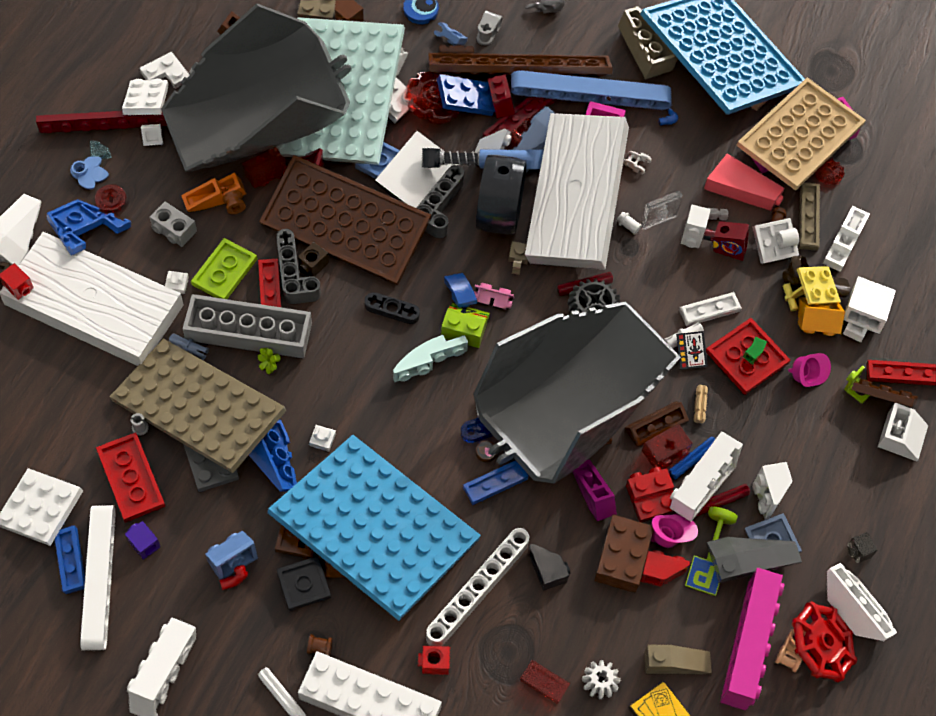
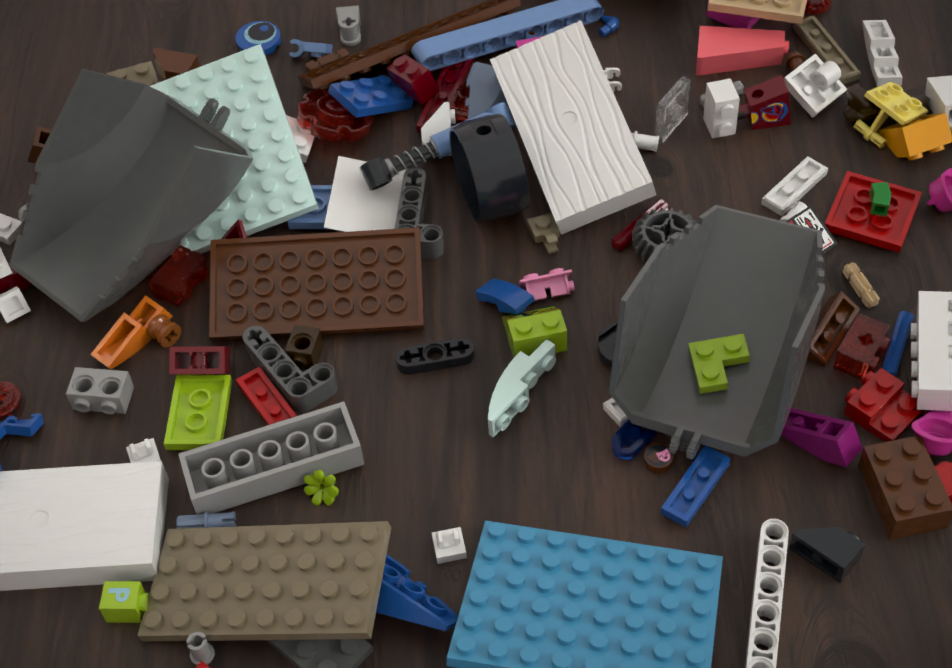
camera: 20 degrees left, 10 degrees down
(112, 371) = (123, 601): none -> lime brick
(242, 236) = (199, 360): none -> dark red brick
(562, 402) = (710, 358): none -> lime plate

